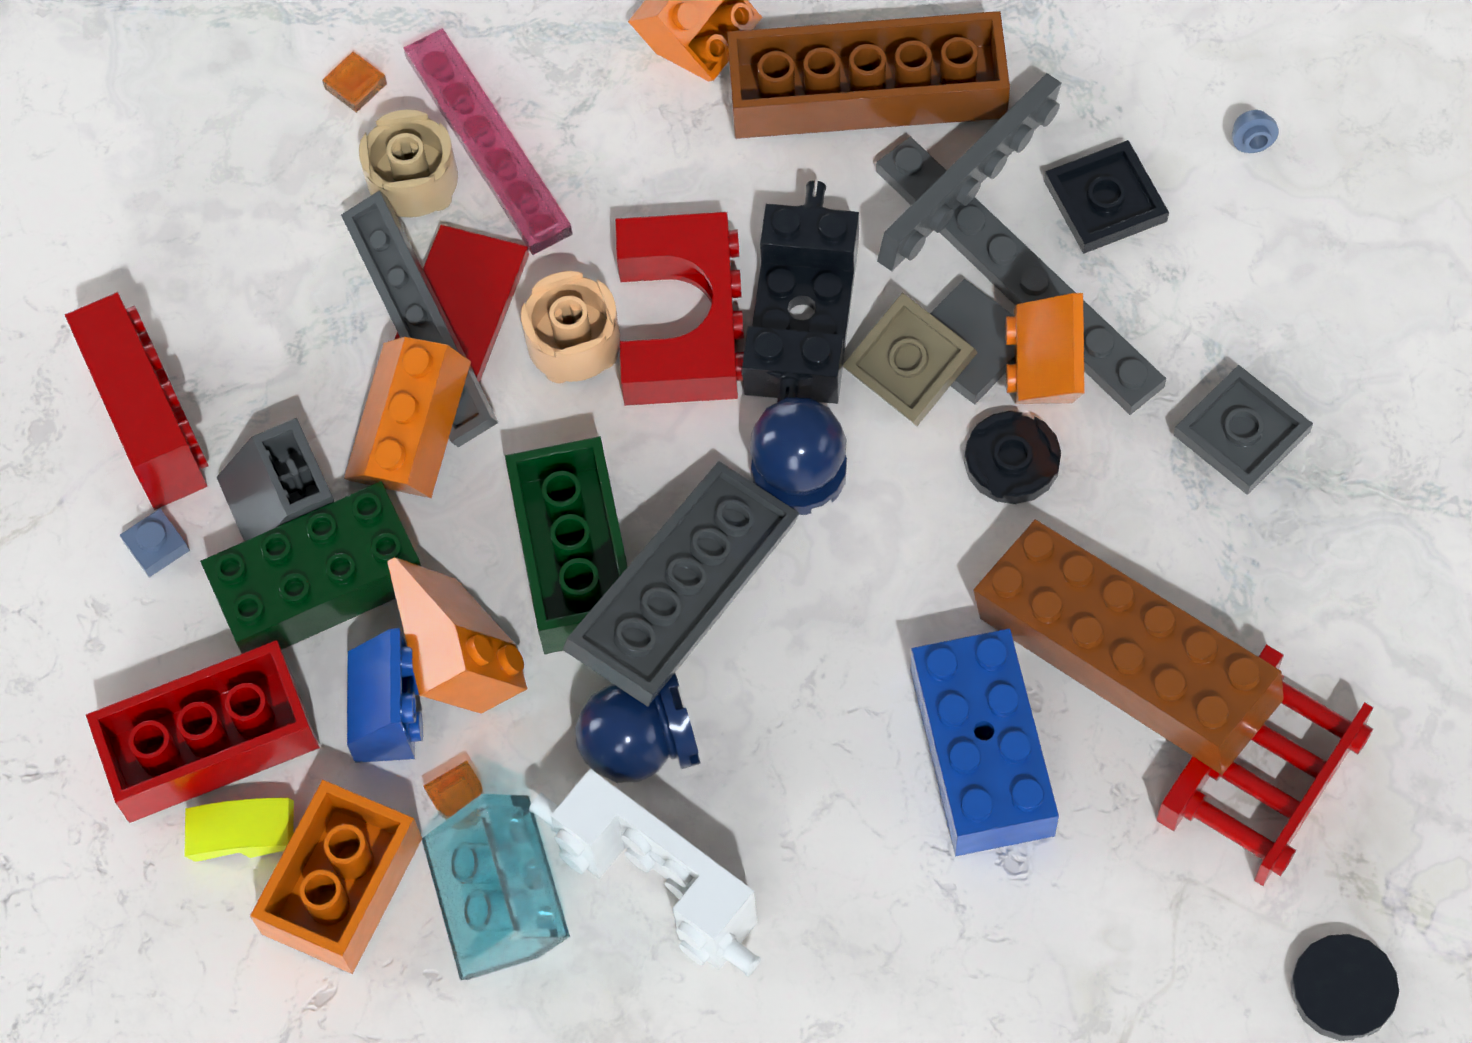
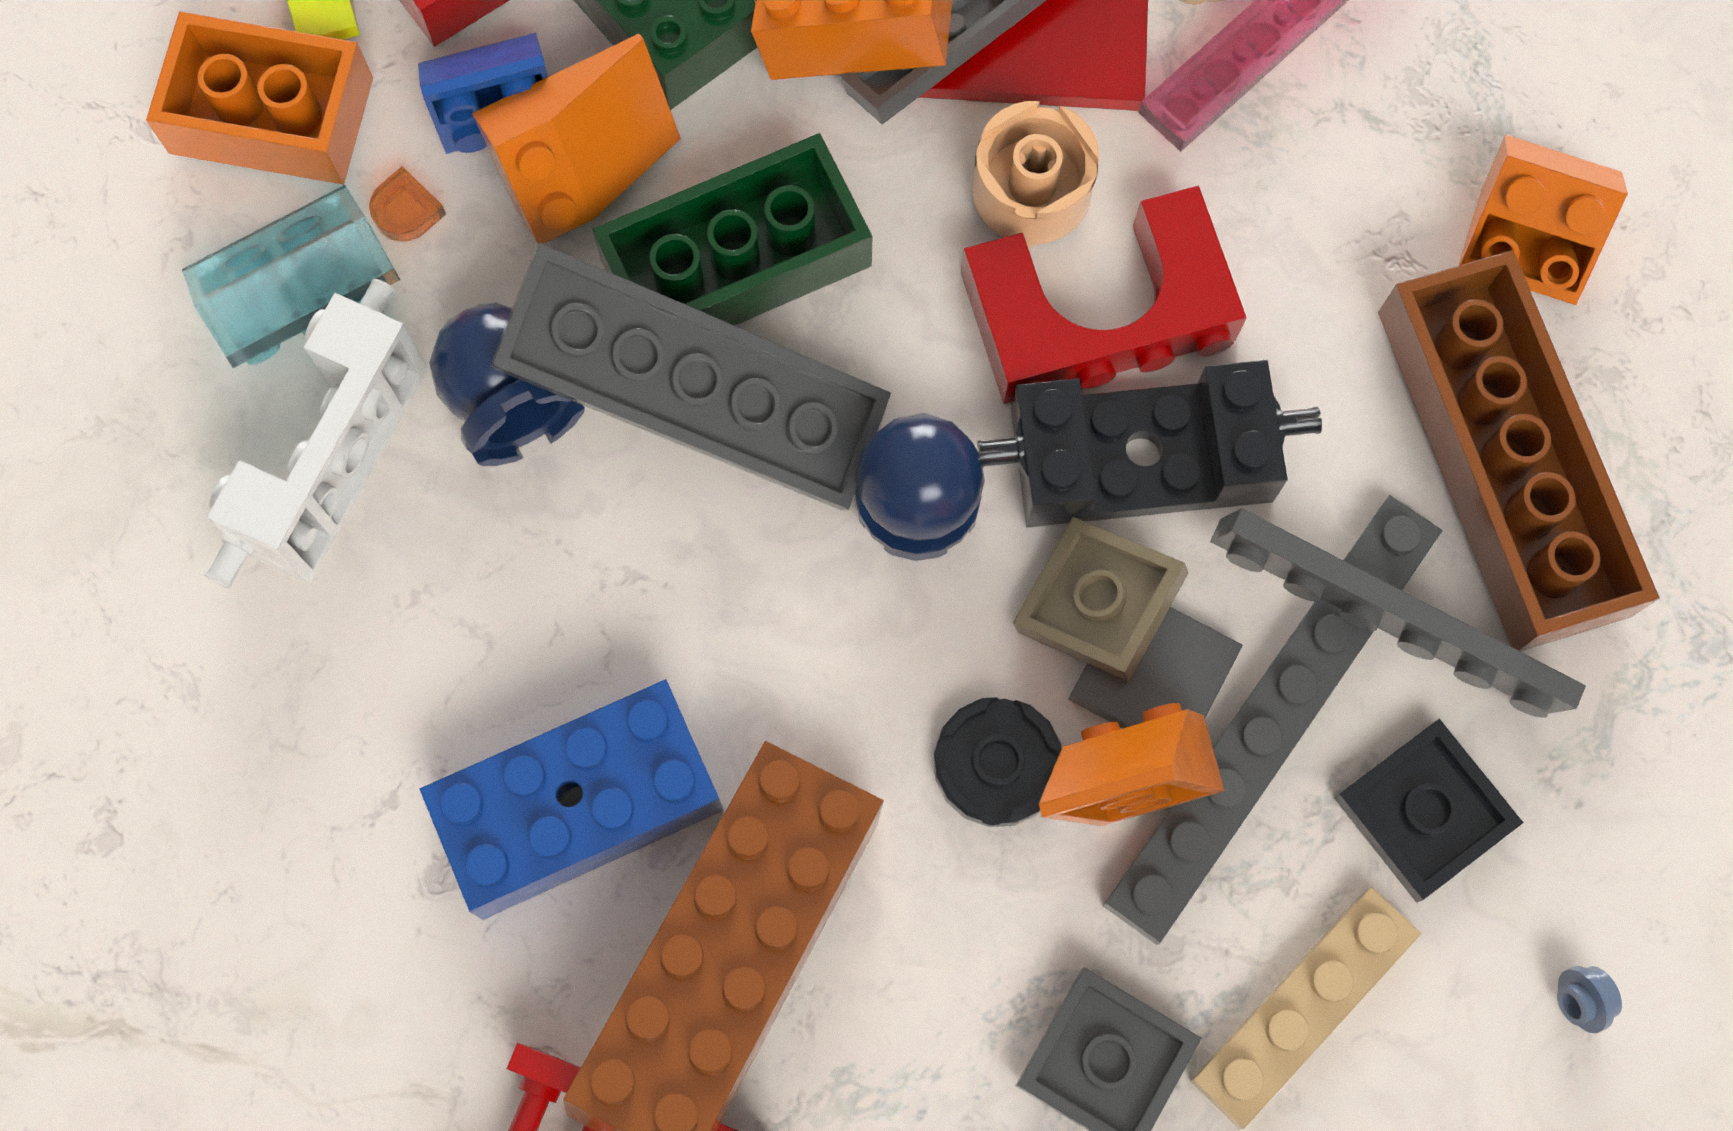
camera: 70 degrees right, 10 degrees up
(1227, 303) = (1305, 1008): none -> tan plate

